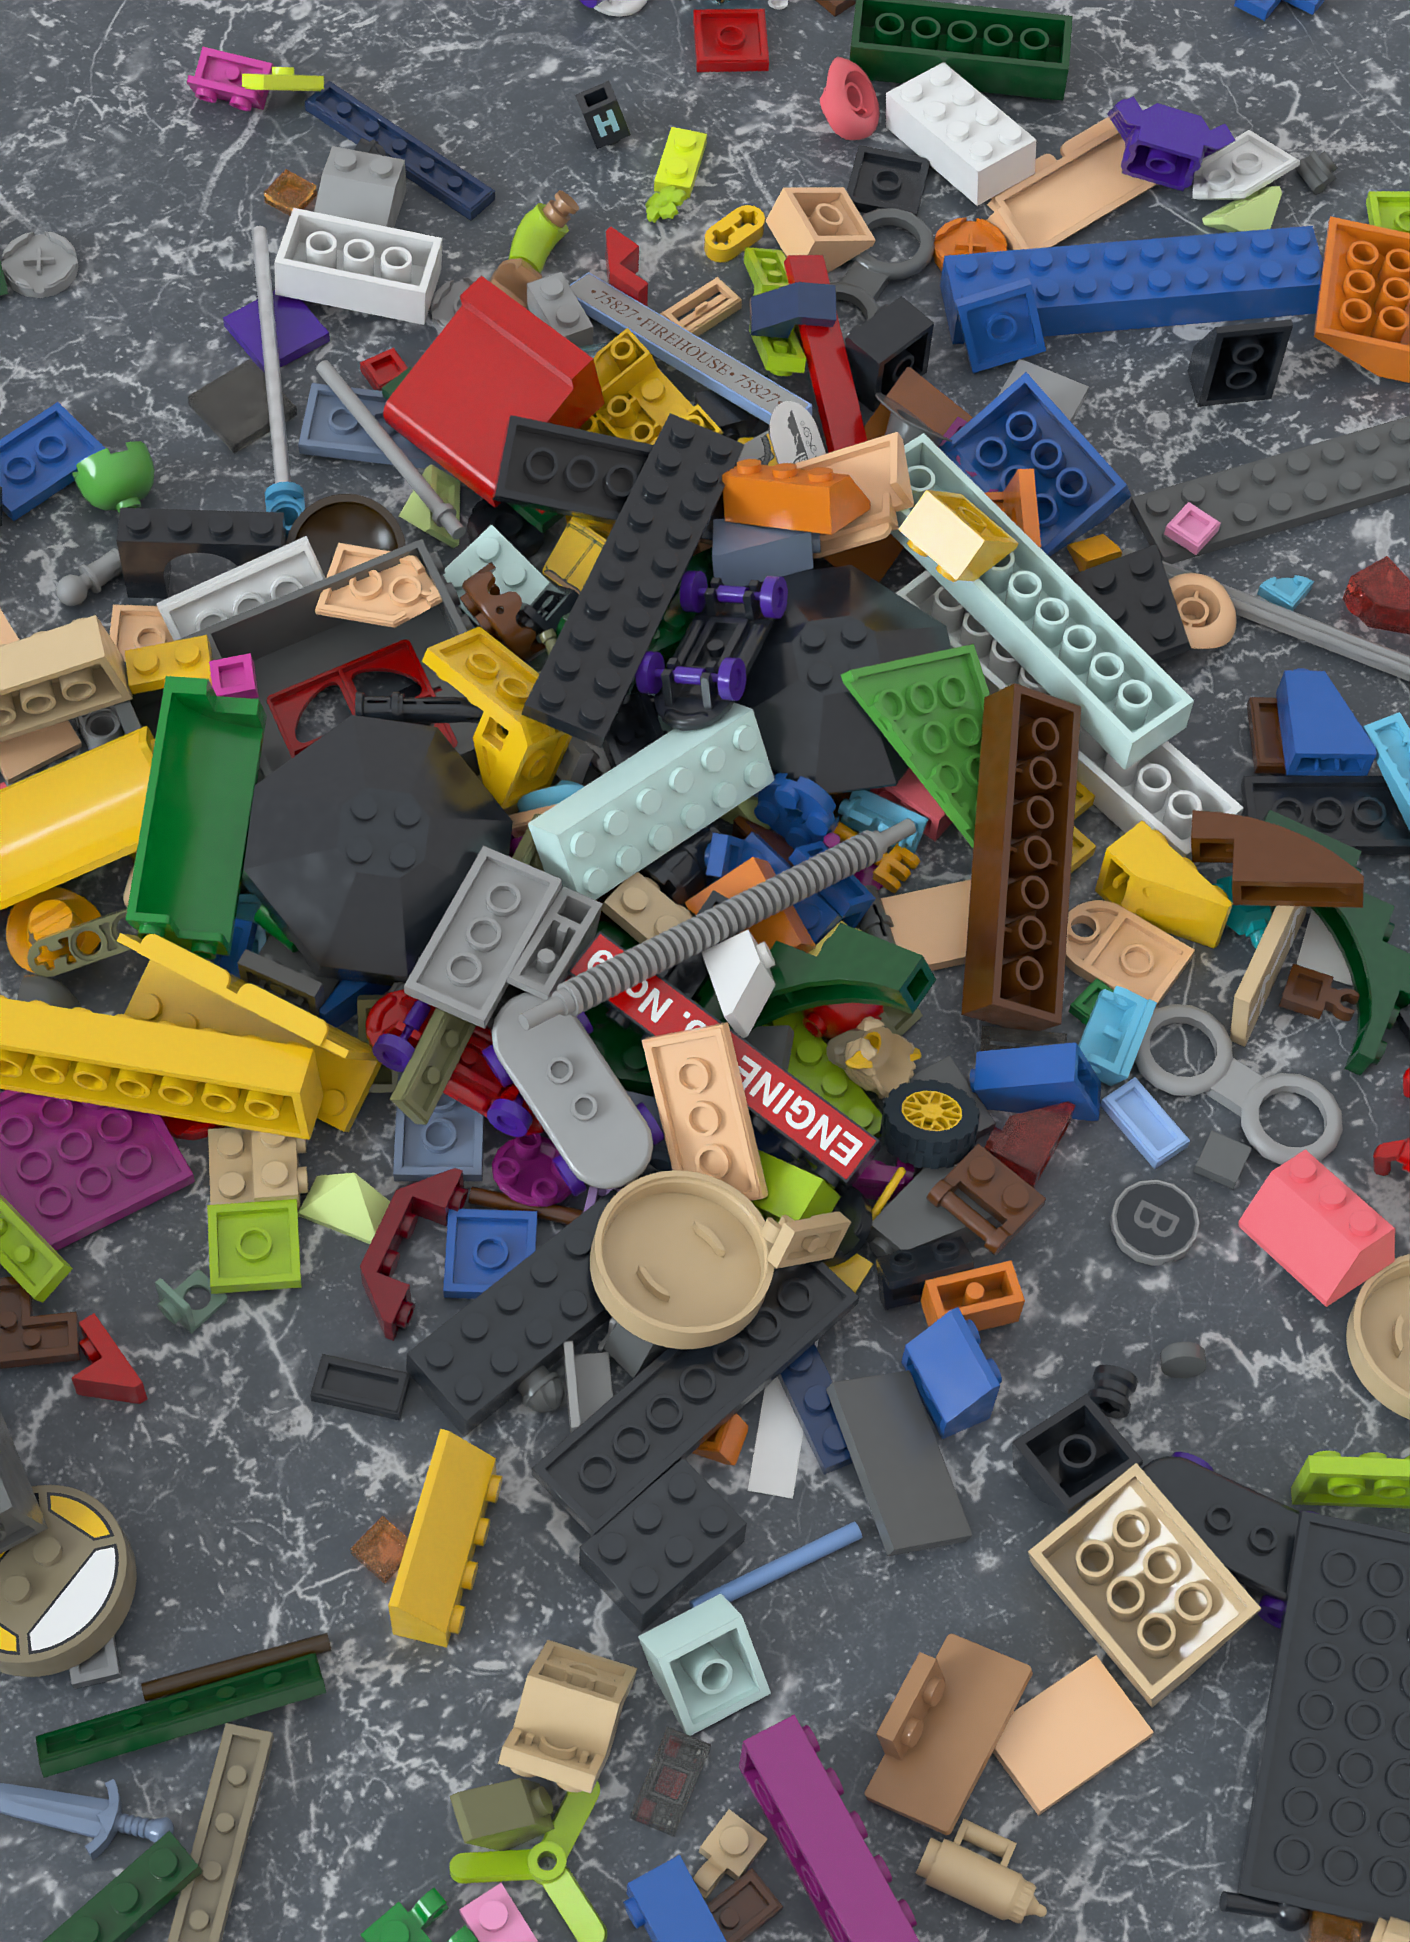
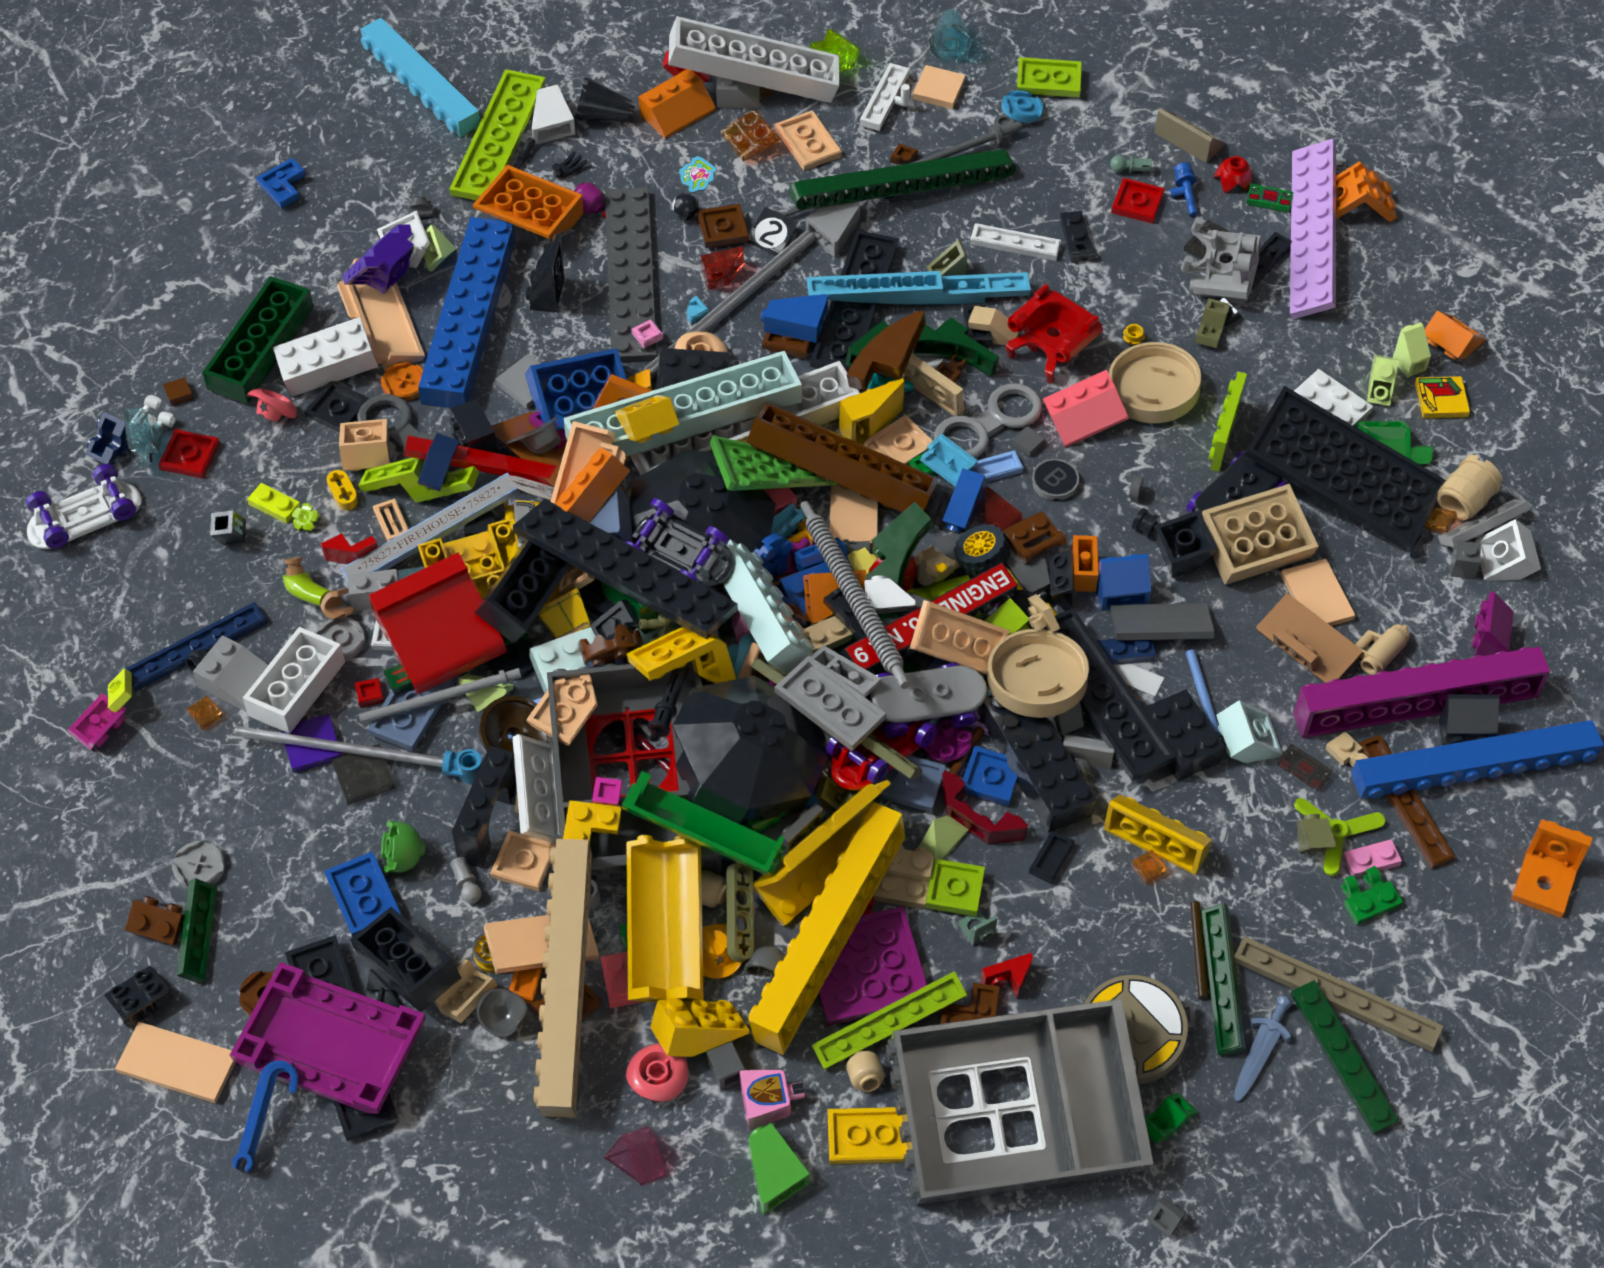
camera: 70 degrees left, 5 degrees down
(567, 1717) = (1268, 796): tan bracket -> none
(723, 855) = (795, 594): blue plate -> none
(1000, 325) = (479, 375): blue plate -> none

